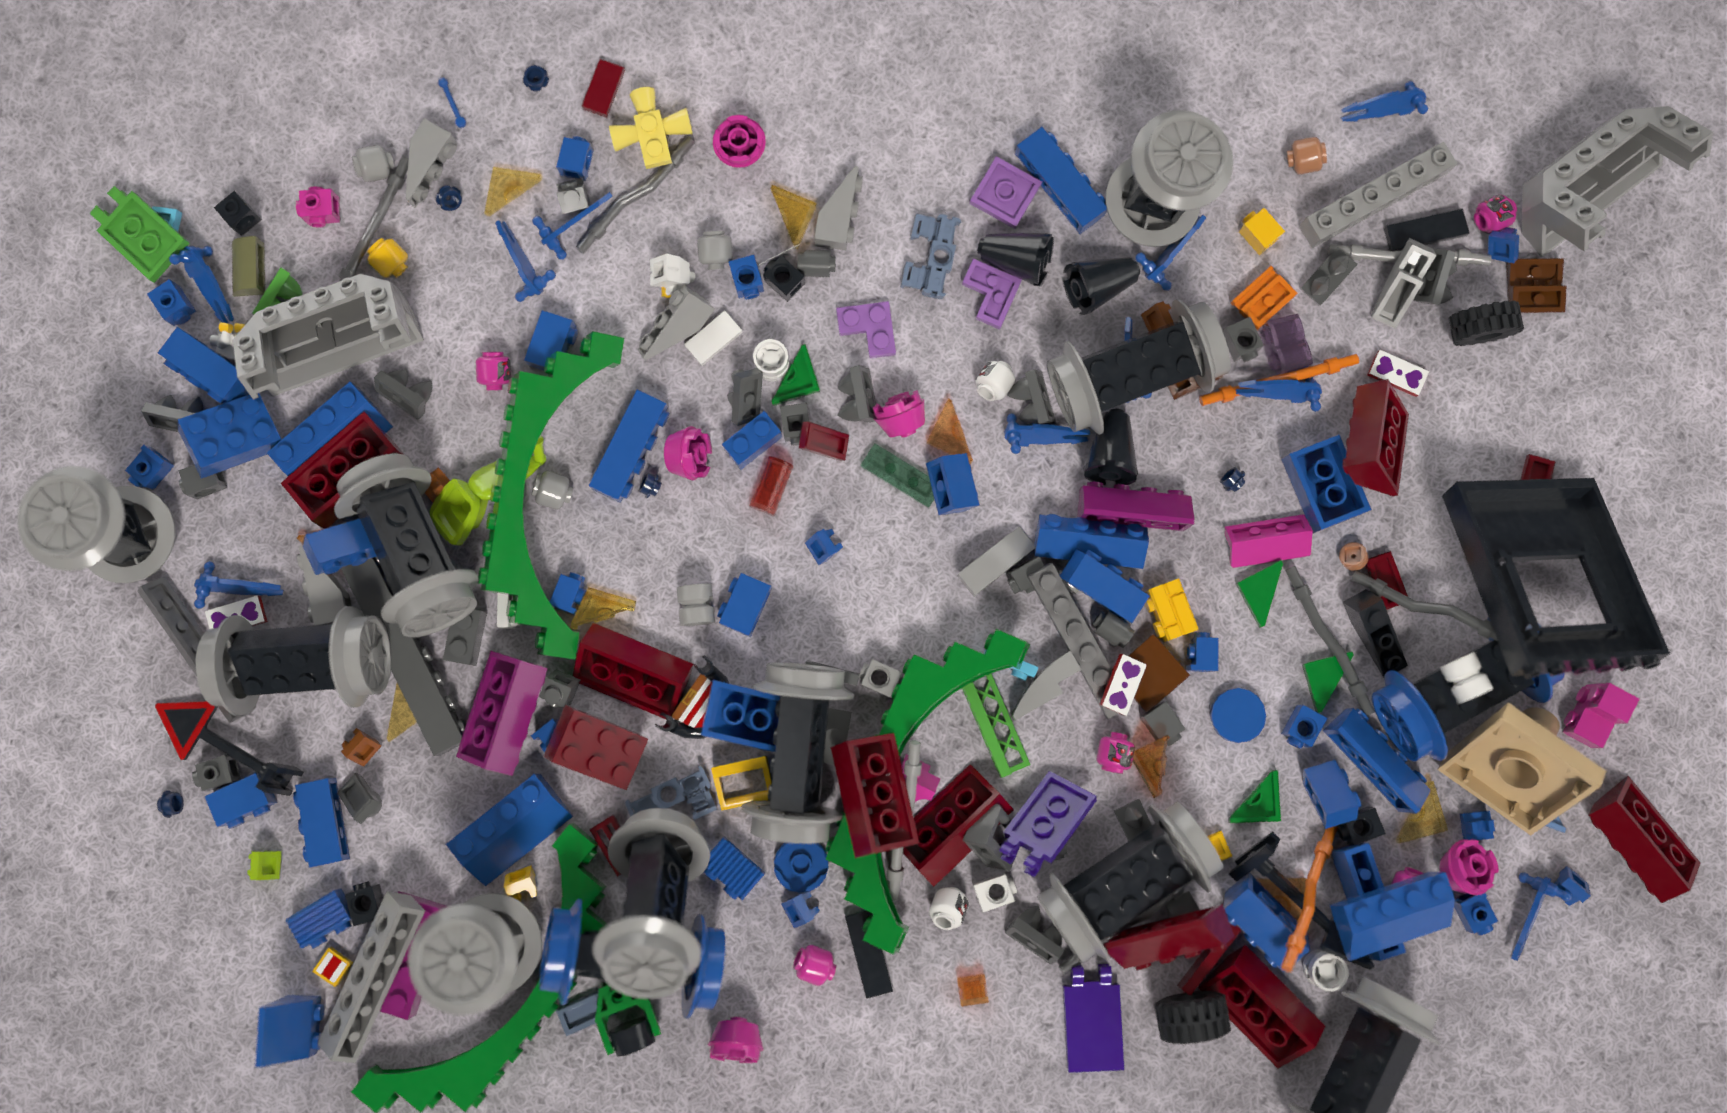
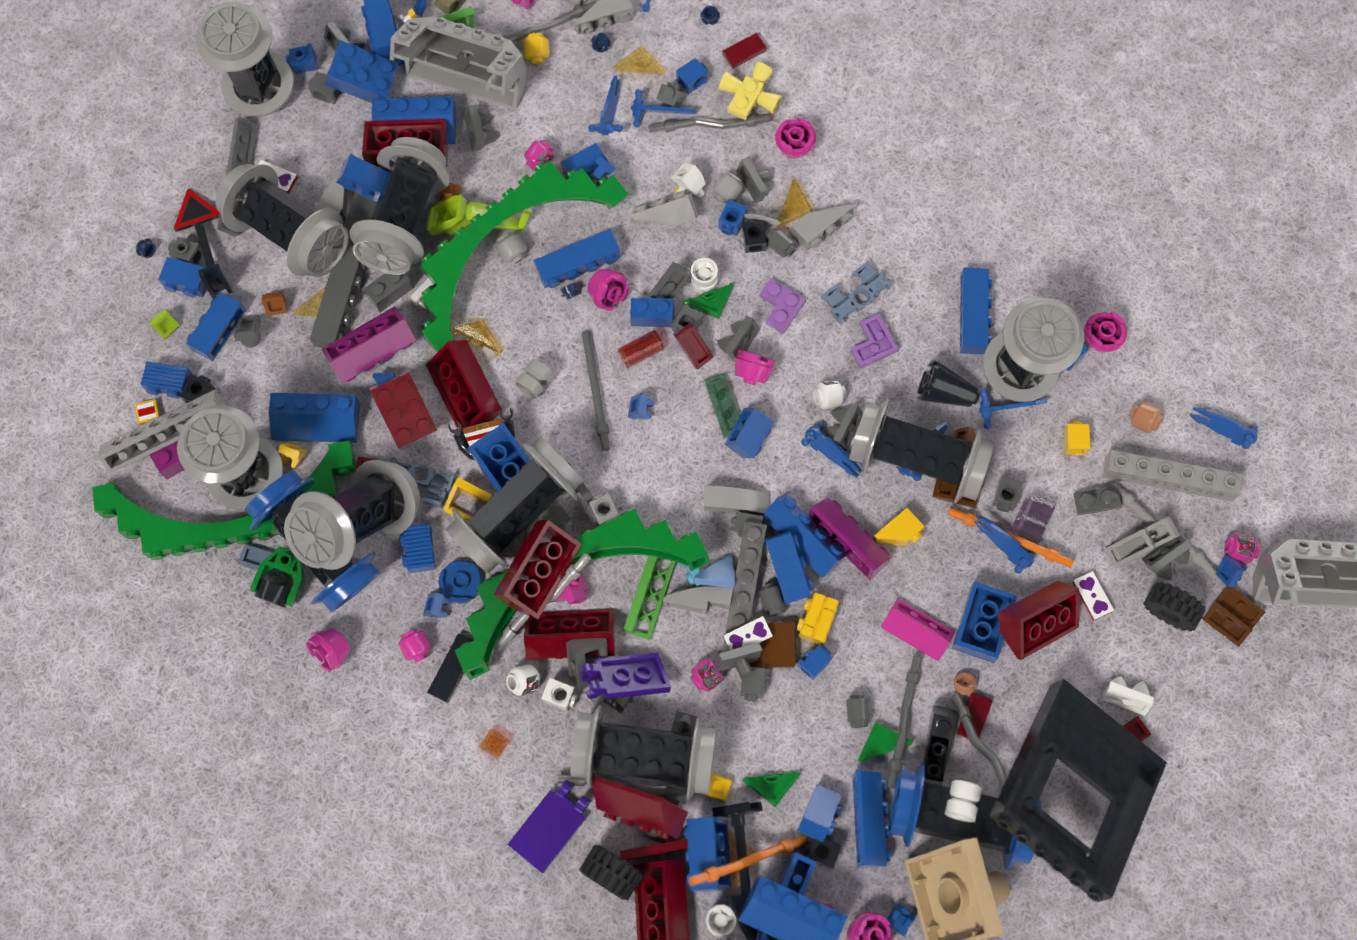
camera: 45 degrees right, 10 degrees down
(209, 583) = (276, 145): blue piece -> none
(288, 1029) = (91, 420): blue slope -> none
(558, 693) = (409, 361): dark grey brick -> none
(568, 592) = (468, 311): blue brick -> none
(573, 333) = (601, 167): none -> blue tile
(713, 338) = (682, 238): white tile -> none
(732, 218) = (754, 180): none -> dark grey tile
(744, 604) = (563, 402): blue brick -> none
(805, 598) = (602, 428): none -> dark grey bar
(948, 433) = (774, 403): clear orange tile -> none
(1005, 192) = (933, 292): medium lavender plate -> none
(1019, 254) = (910, 333): black cone -> none
(1025, 931) = (557, 735): dark grey tile -> none
(1045, 649) = (719, 574): none -> medium blue tile
(1113, 451) = (864, 493): black cone -> none
(1138, 715) = (739, 659): none -> dark grey tile
(1151, 763) = (724, 700): clear orange tile -> none
(1174, 457) = (901, 530): none -> yellow slope
(1206, 97) = (1105, 331): none -> dark pink cone
(1233, 480) = (927, 574): dark blue plate -> none
(1238, 715) = (805, 719): blue tile -> none
(1259, 591) = (886, 654): green tile -> none
(1264, 297) = (1044, 480): orange plate -> none
(1281, 667) = (858, 711): none -> dark grey brick
(1314, 722) = (849, 756): blue brick -> none
(1427, 229) = (1190, 524): black tile -> none
(1427, 821) = (871, 885): clear yellow tile -> none
(1516, 441) = (1132, 699): none -> white tile
(1597, 712) = (1042, 914): dark pink brick -> none

